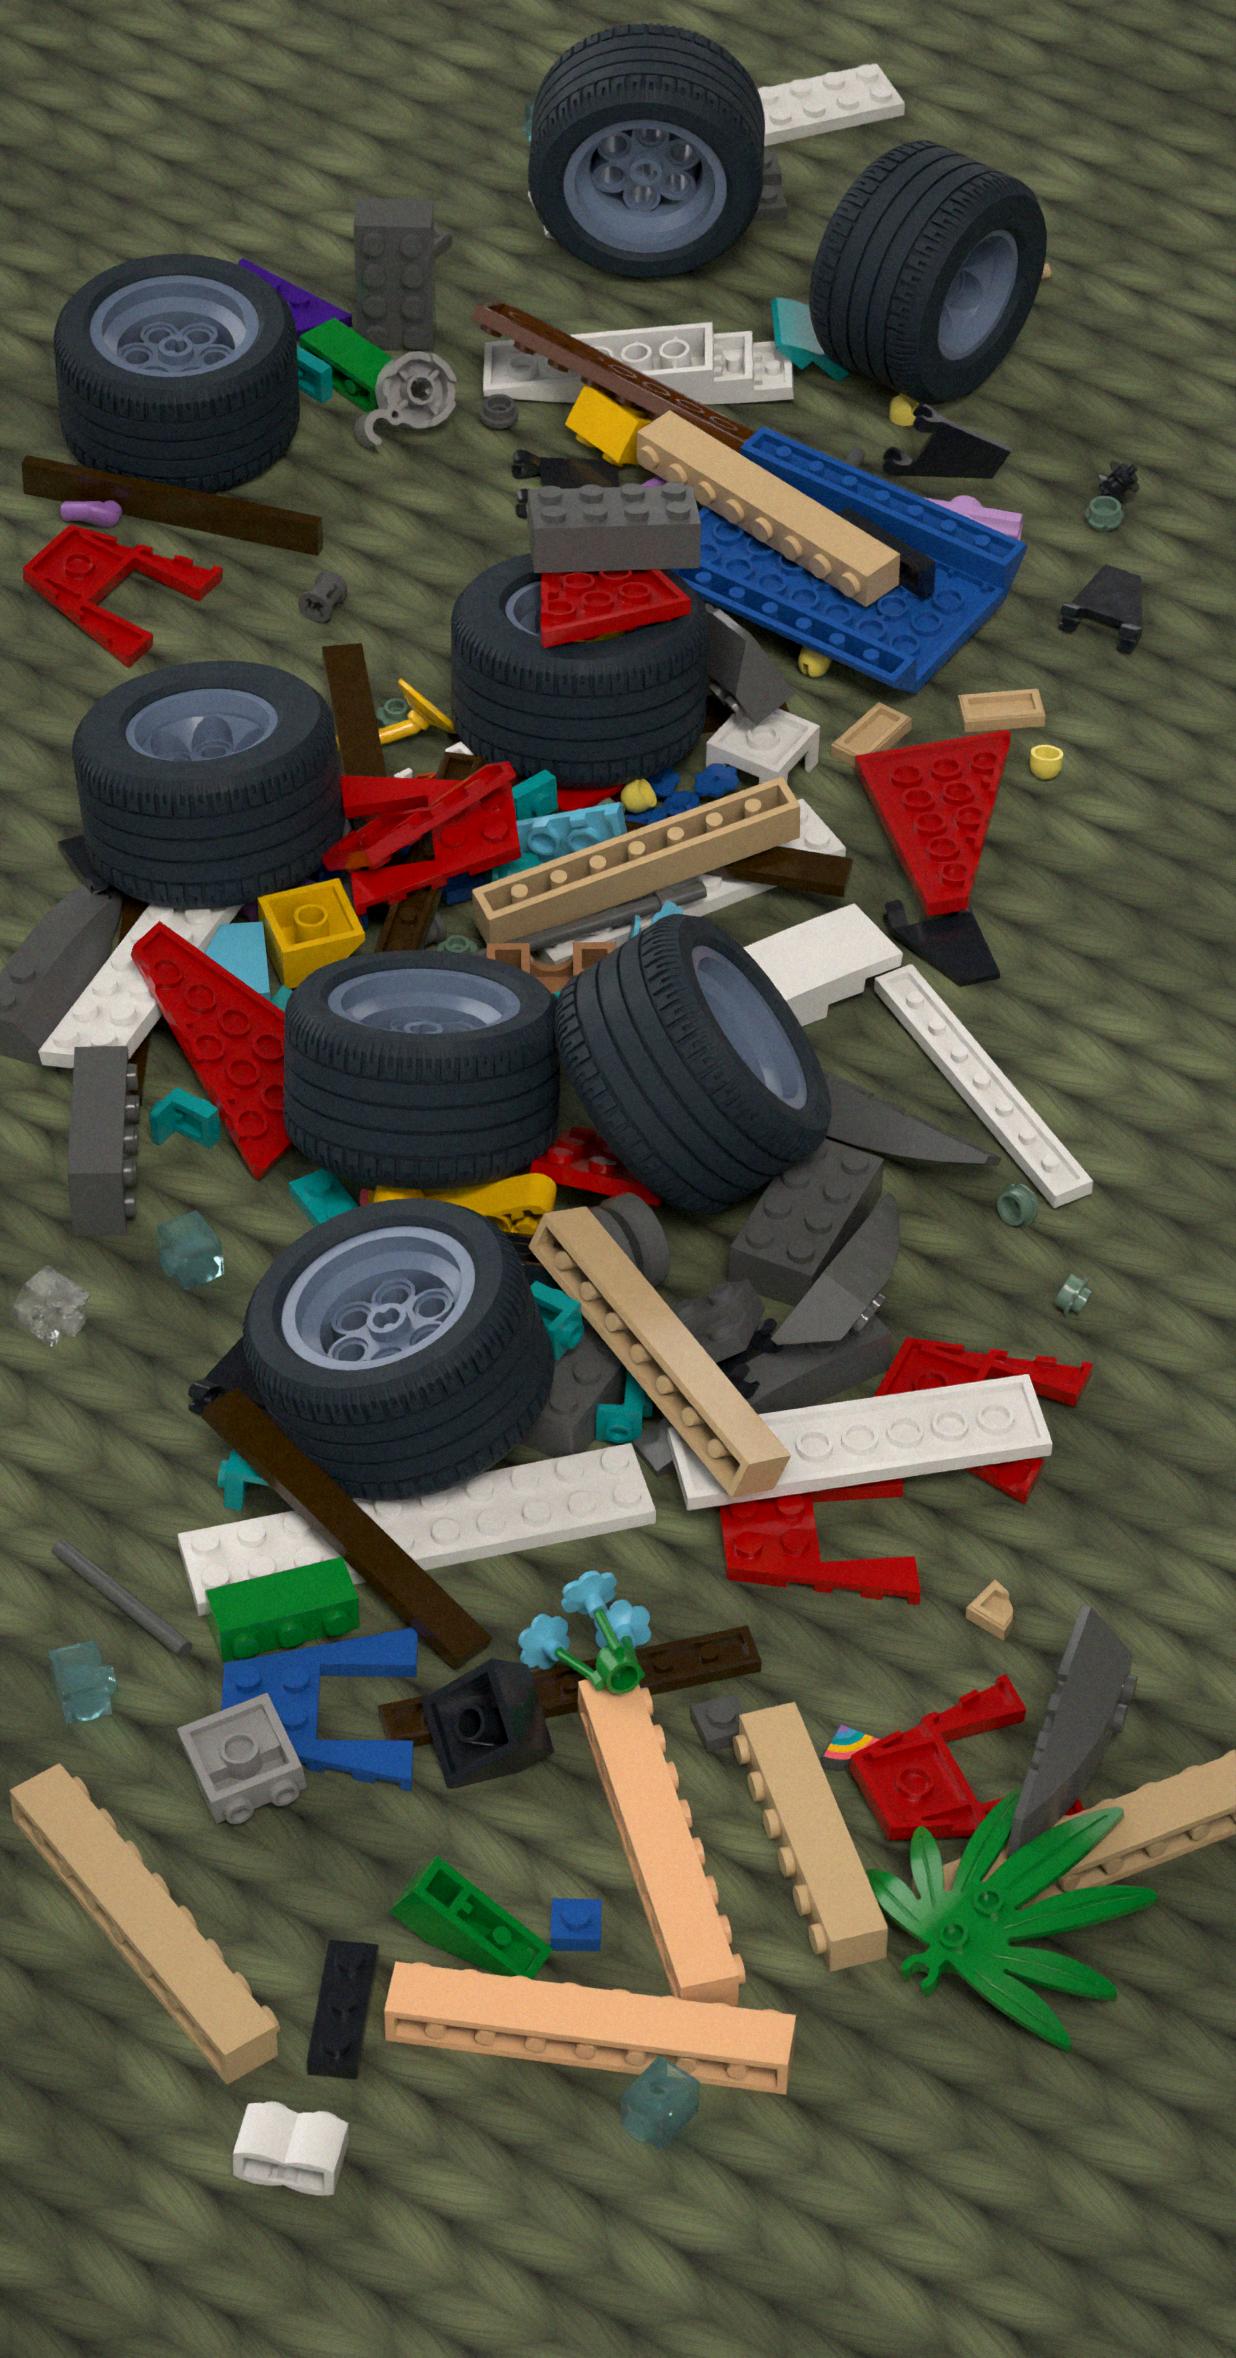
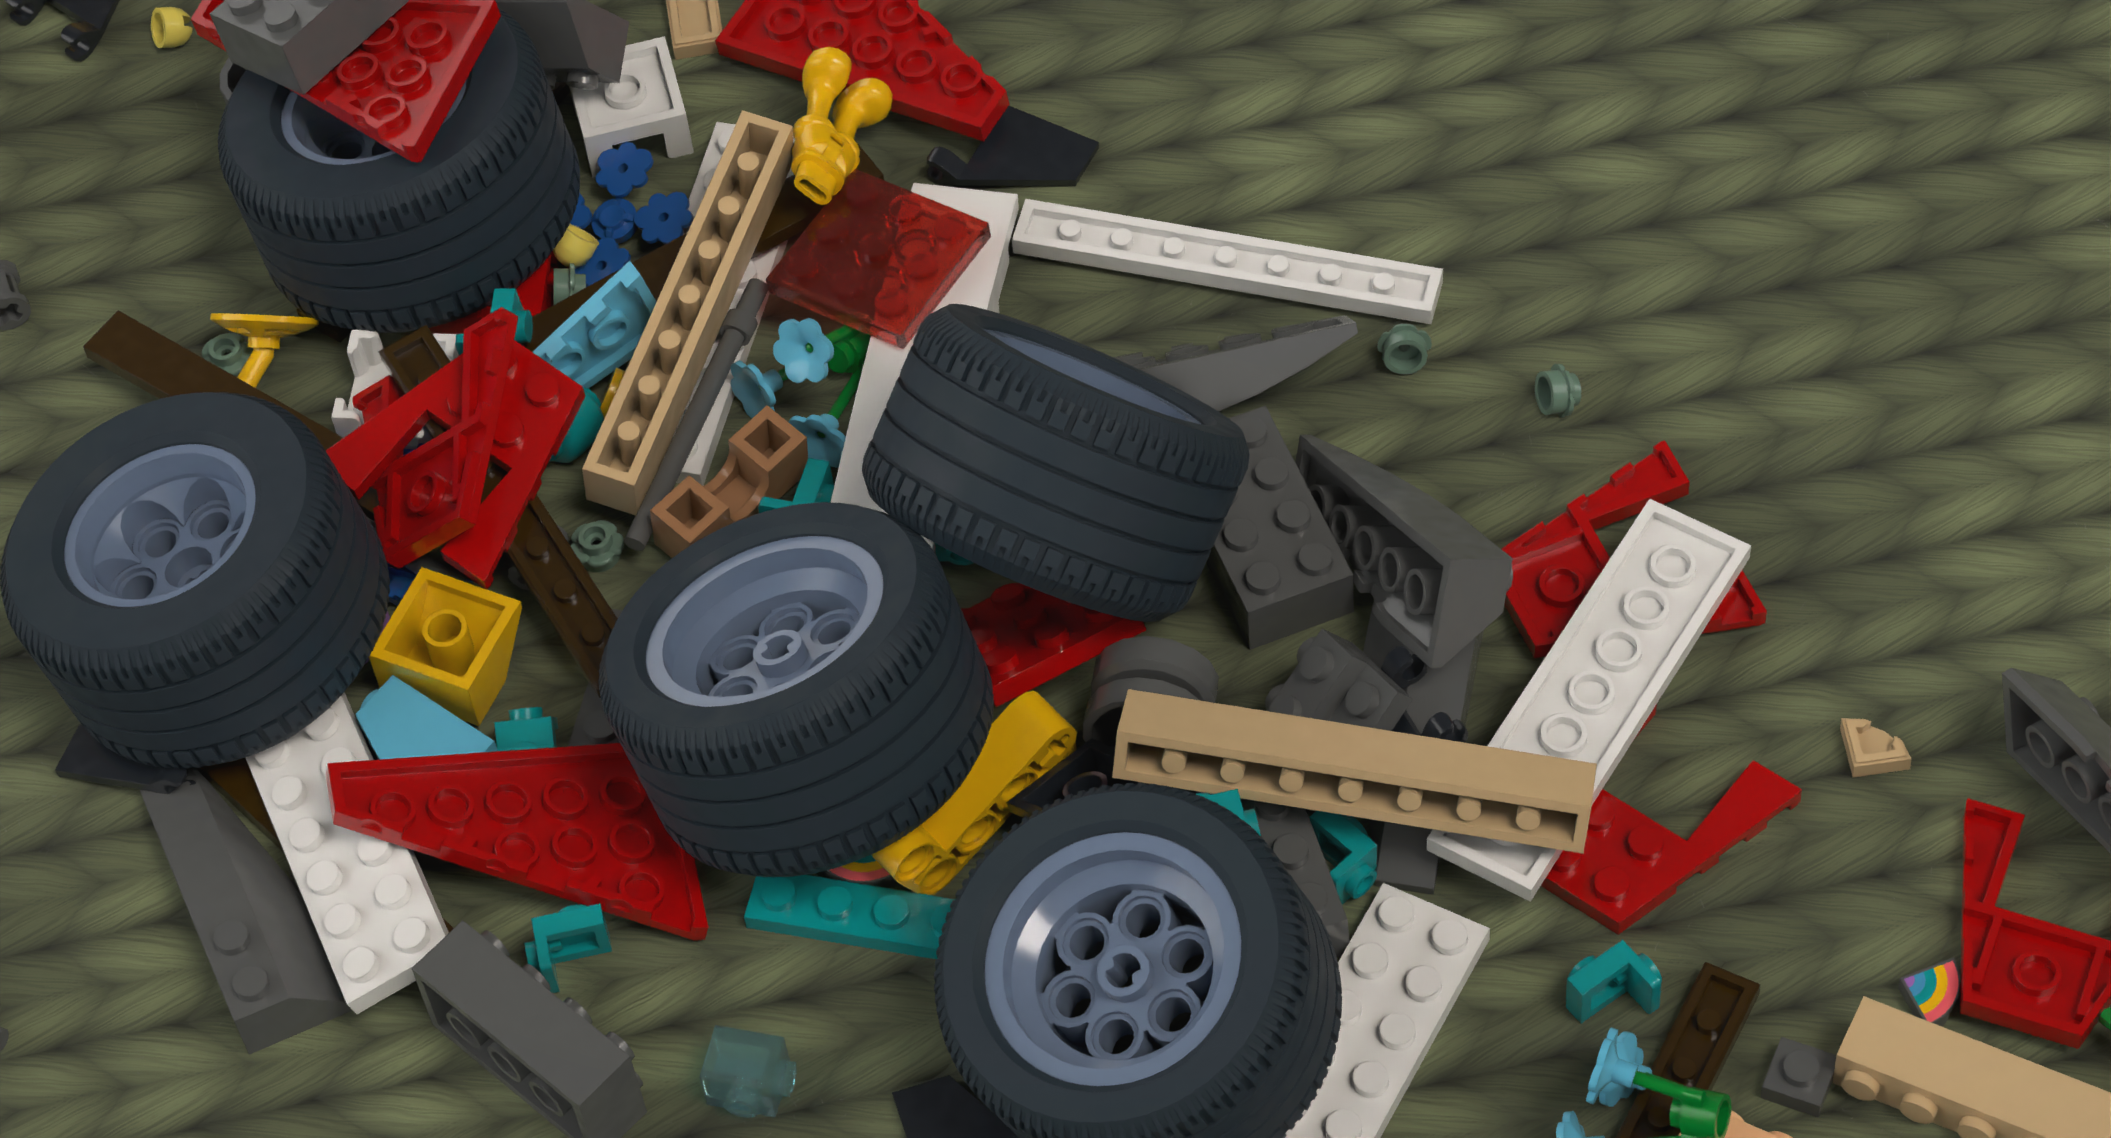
camera: 40 degrees left, 10 degrees up
(679, 1586) = (1603, 979): none -> teal bracket
(781, 917) = (878, 258): none -> clear red plate
(813, 840) = (827, 151): none -> yellow piece

